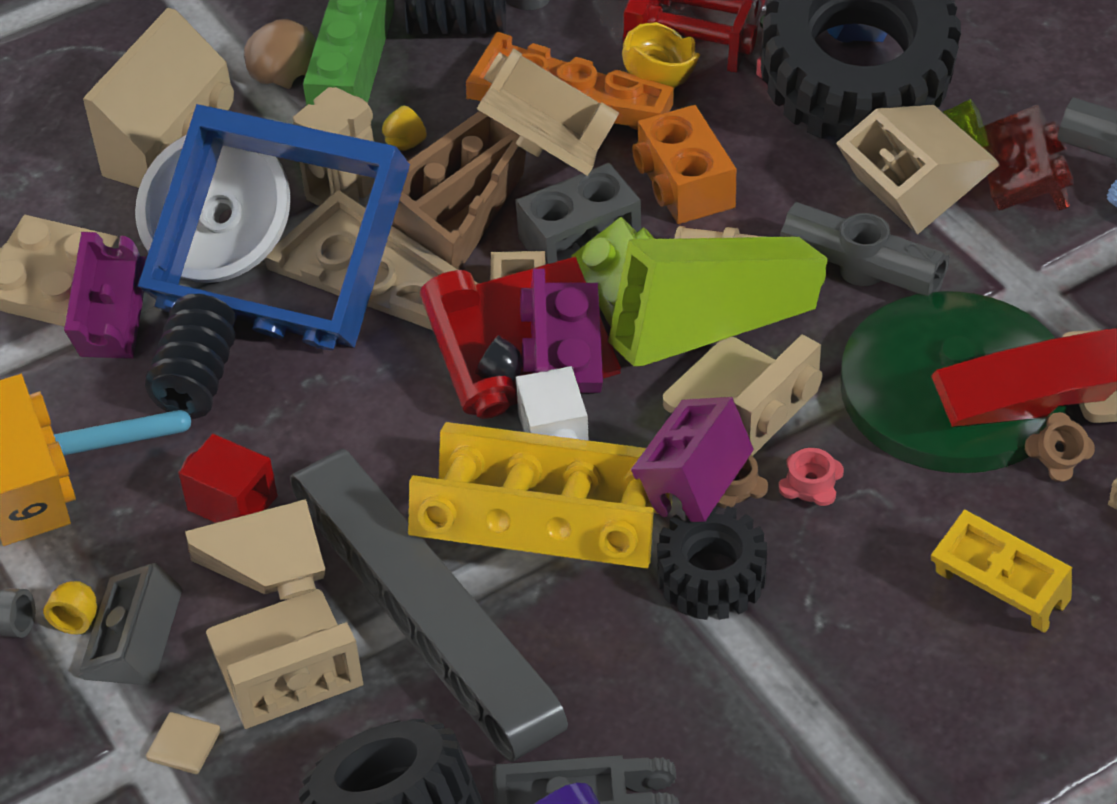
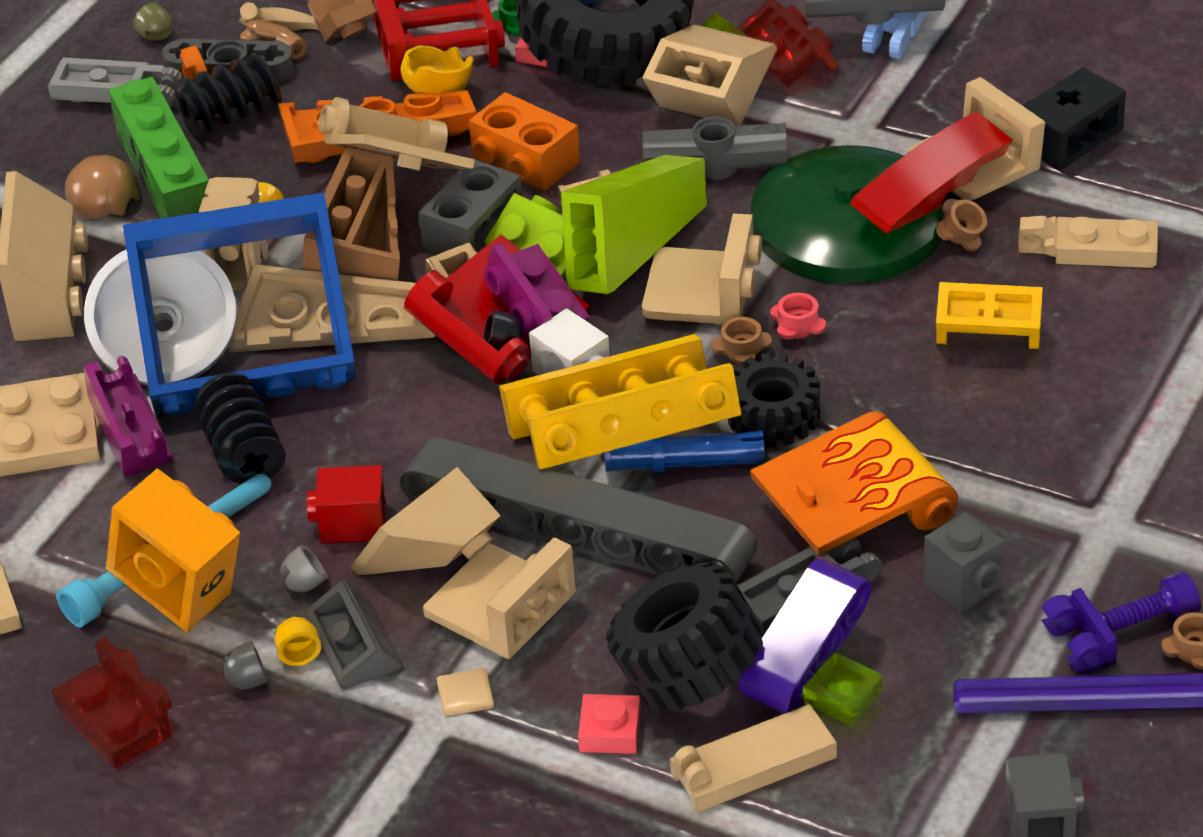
camera: 30 degrees left, 5 degrees down
(139, 532) = (302, 570): none -> light grey hinge
(589, 583) = (688, 451): none -> blue pin
(694, 456) = (716, 324): magenta hinge -> none
(714, 705) = (855, 483): none -> orange door

